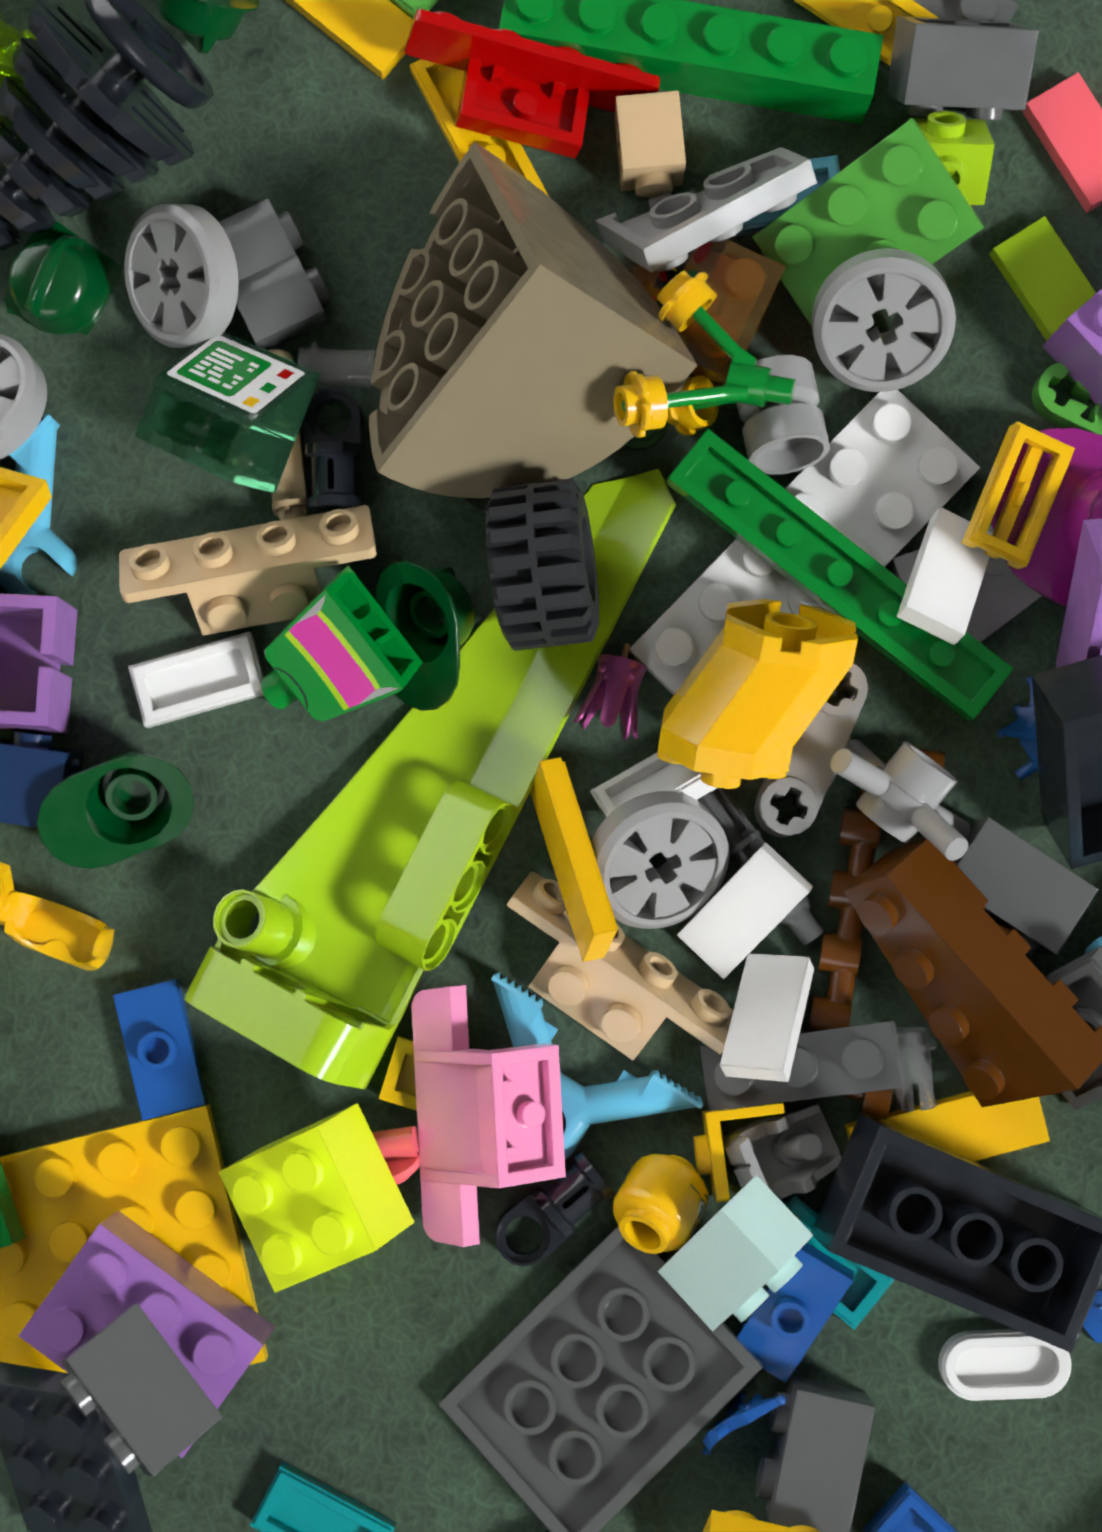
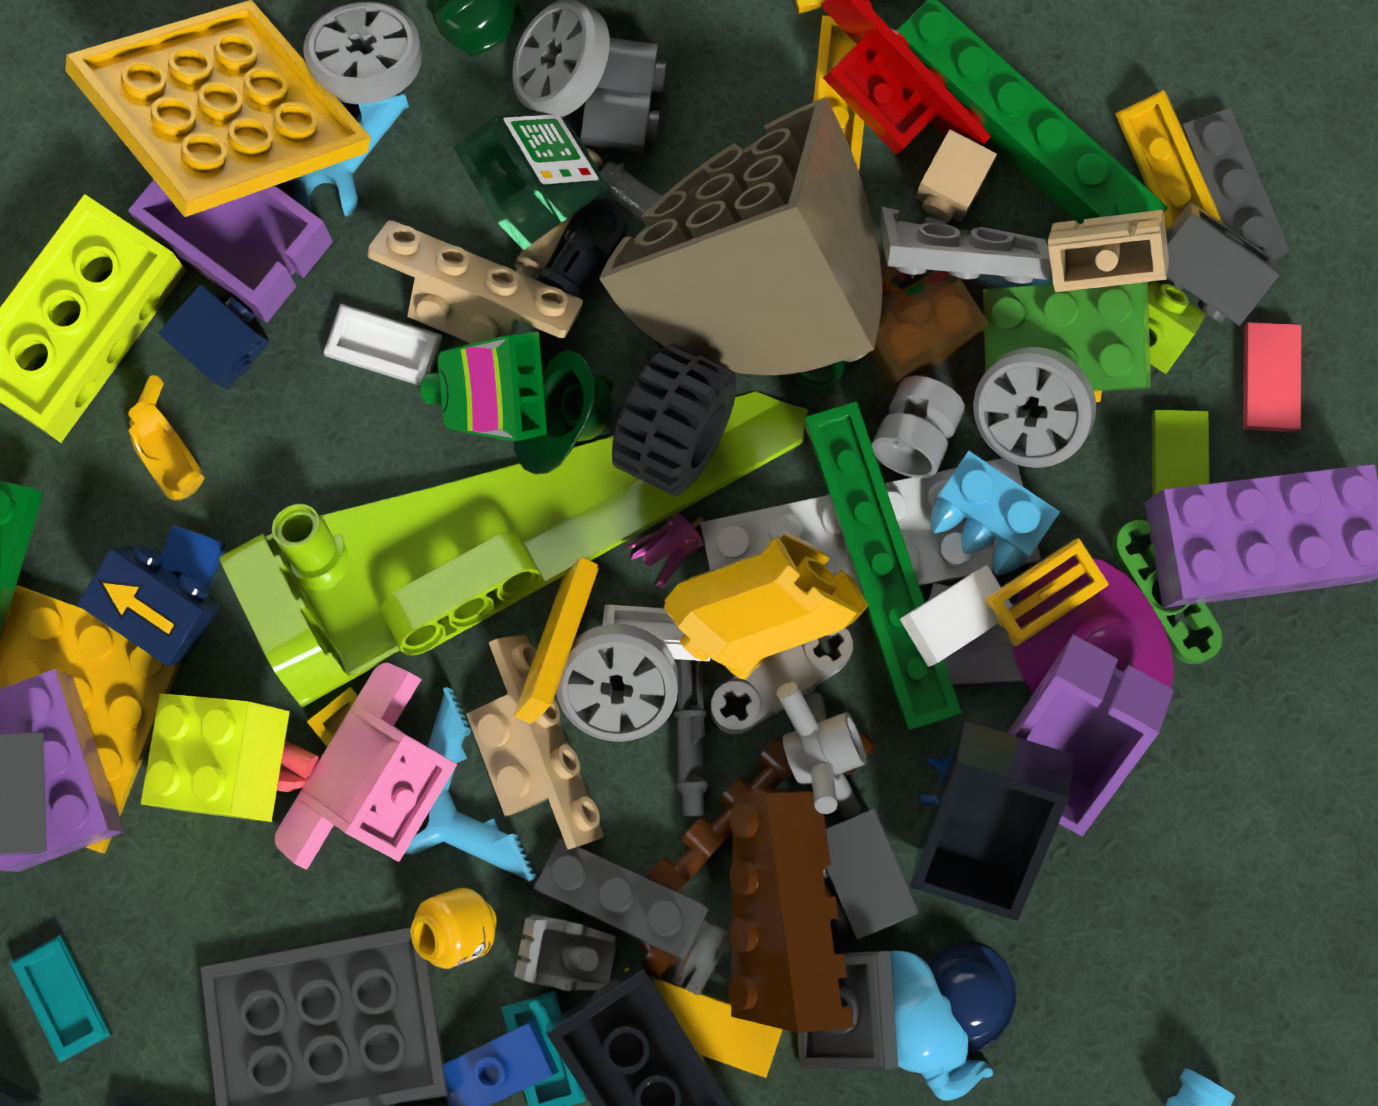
camera: 30 degrees right, 5 degrees down
(115, 810) = (262, 396): dark green piece -> none
(146, 1091) = (149, 603): none -> dark blue brick
(552, 1211) = (372, 884): black connector -> none
(644, 400) = (866, 377): plant -> none
(709, 1147) = (515, 912): yellow bracket -> none
(737, 1254) = (481, 997): light aqua brick -> none
(745, 910) = (656, 761): white tile -> none
(767, 1017) = (619, 846): white tile -> none
(862, 113) = (1108, 251): none -> tan brick
(908, 448) = (993, 510): none -> medium azure plate

